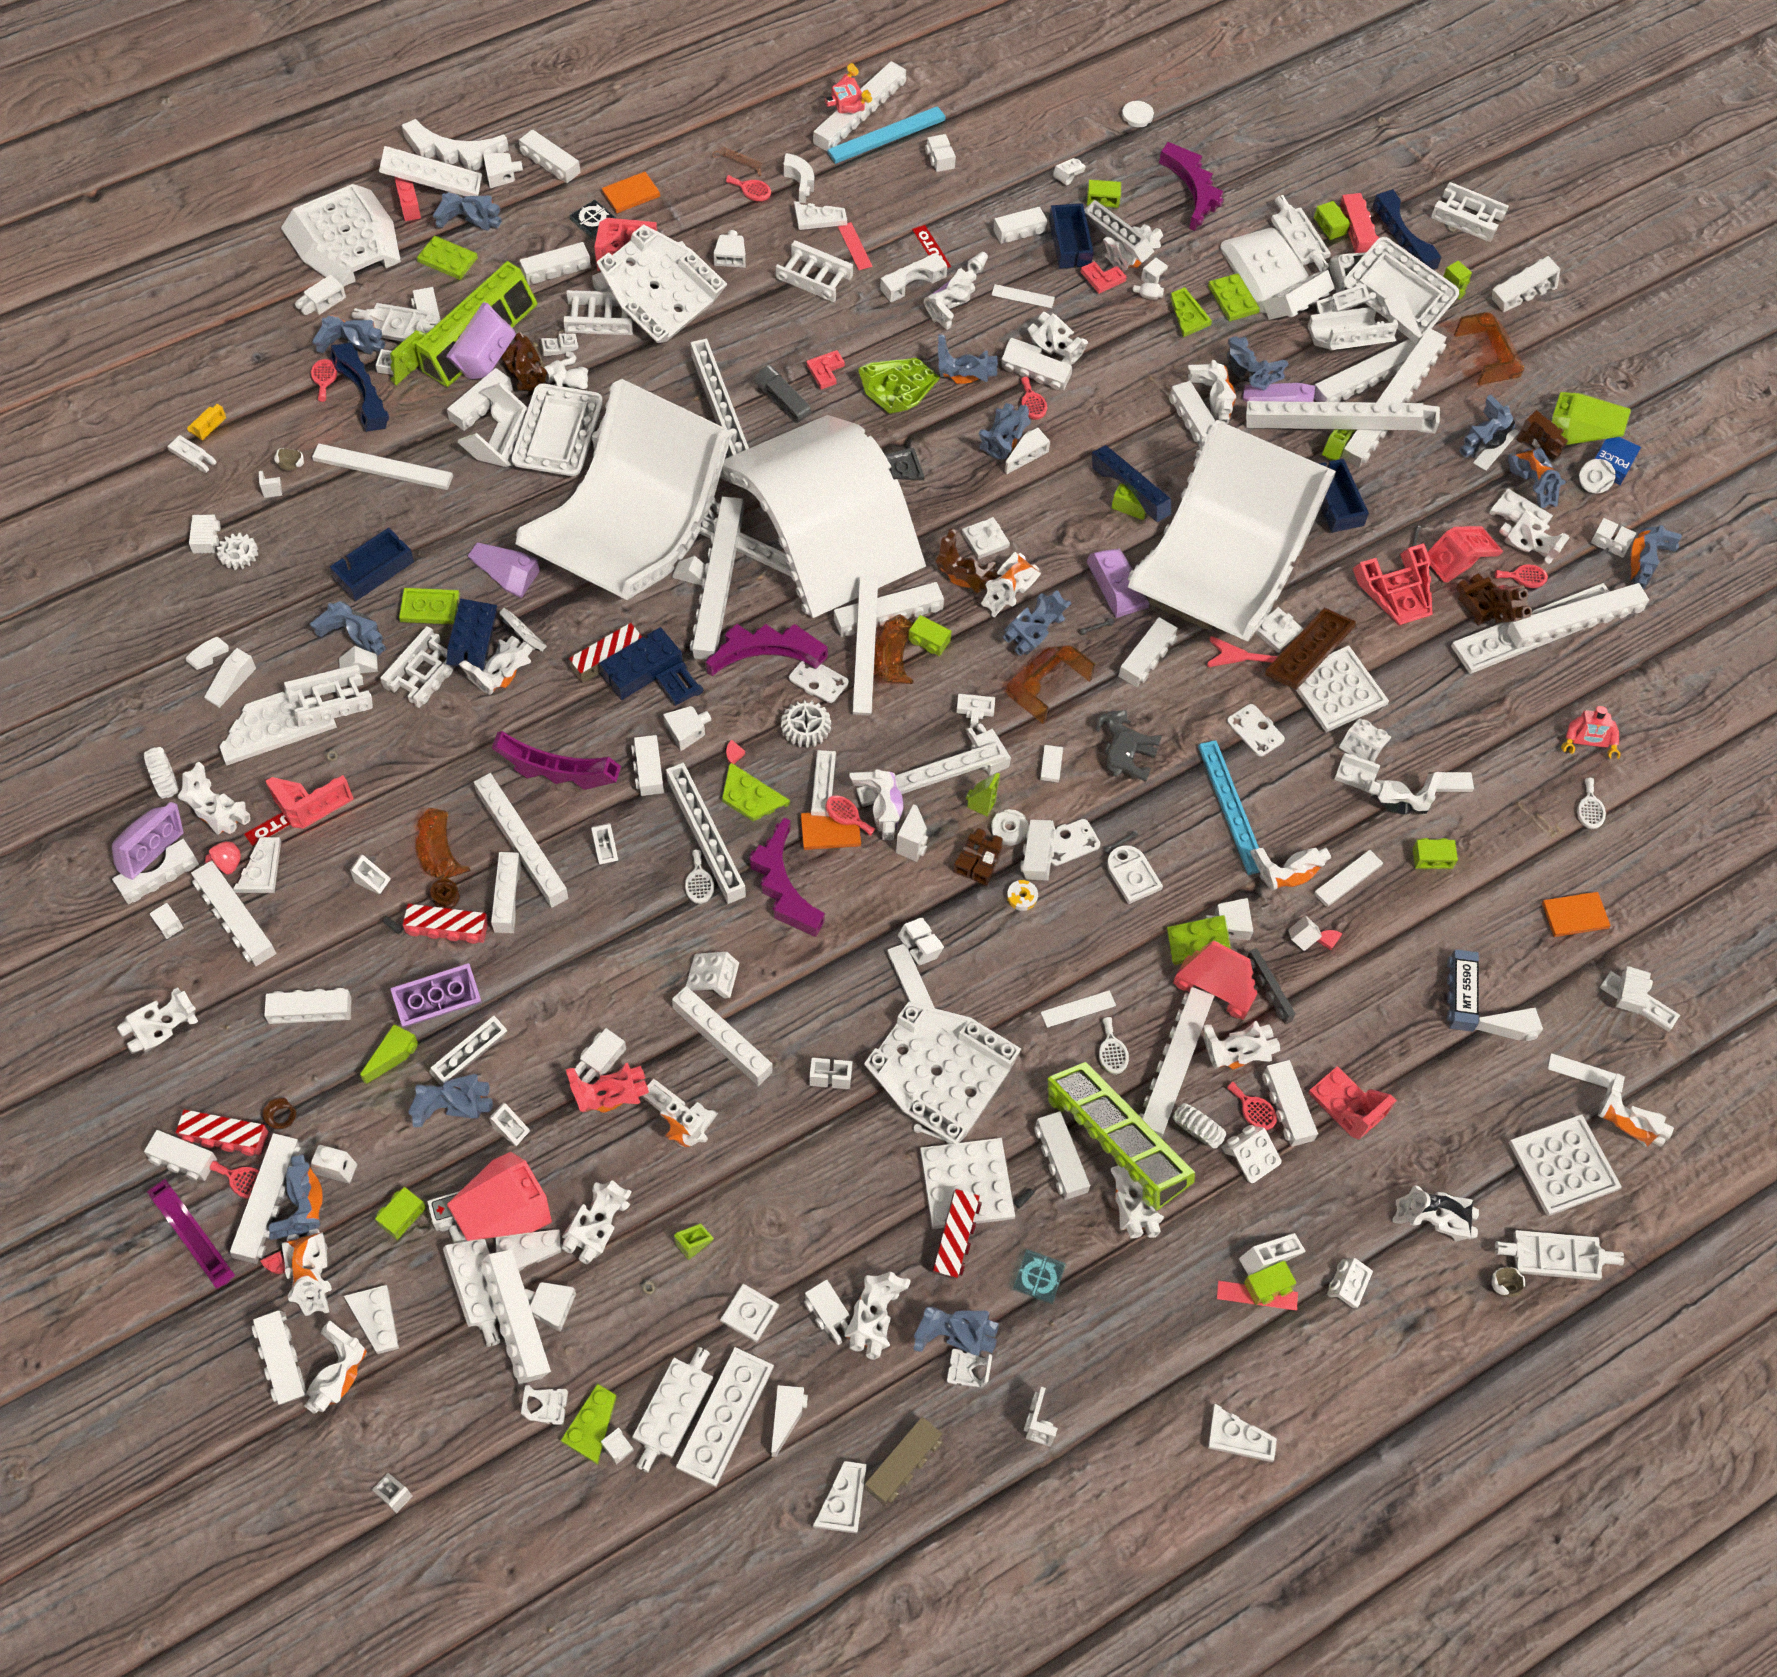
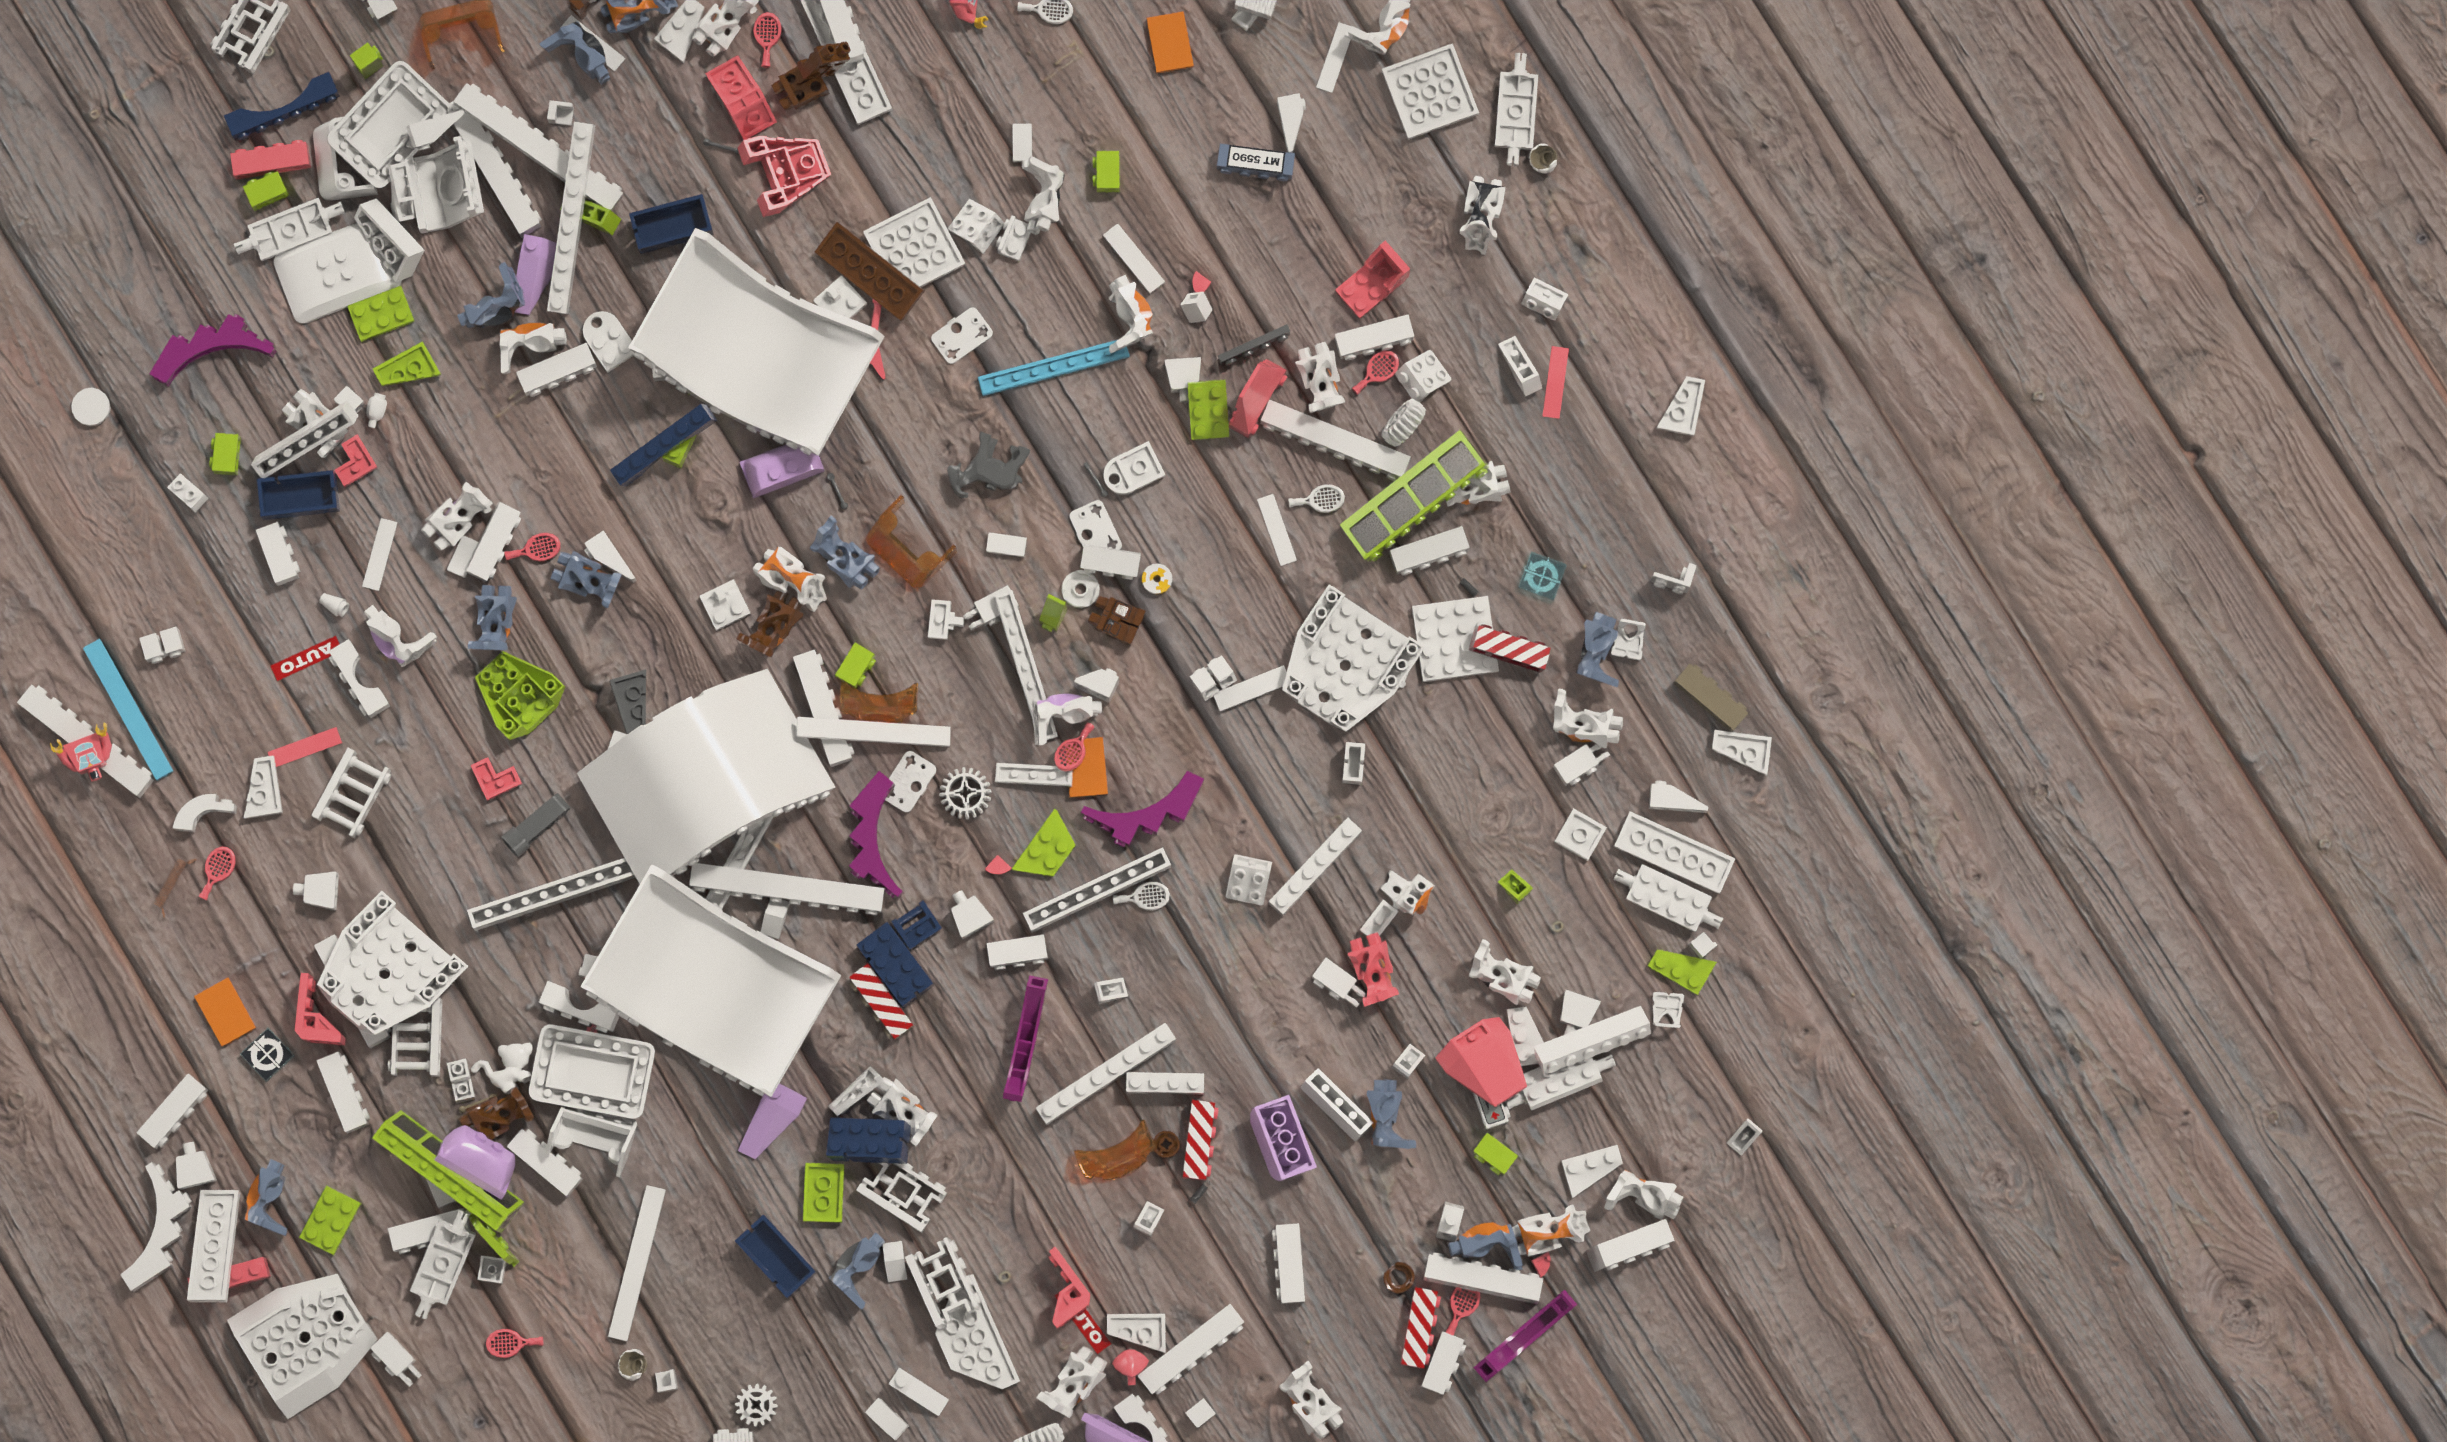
camera: 90 degrees left, 20 degrees up
(347, 362) = (493, 1317): dark blue arch -> none
(358, 332) = (454, 1308): sand blue hips -> none
(391, 1052) = (1334, 1177): lime slope -> none
(1147, 652) = (873, 439): white brick -> none
(1270, 1283) = (1548, 369): lime brick -> none

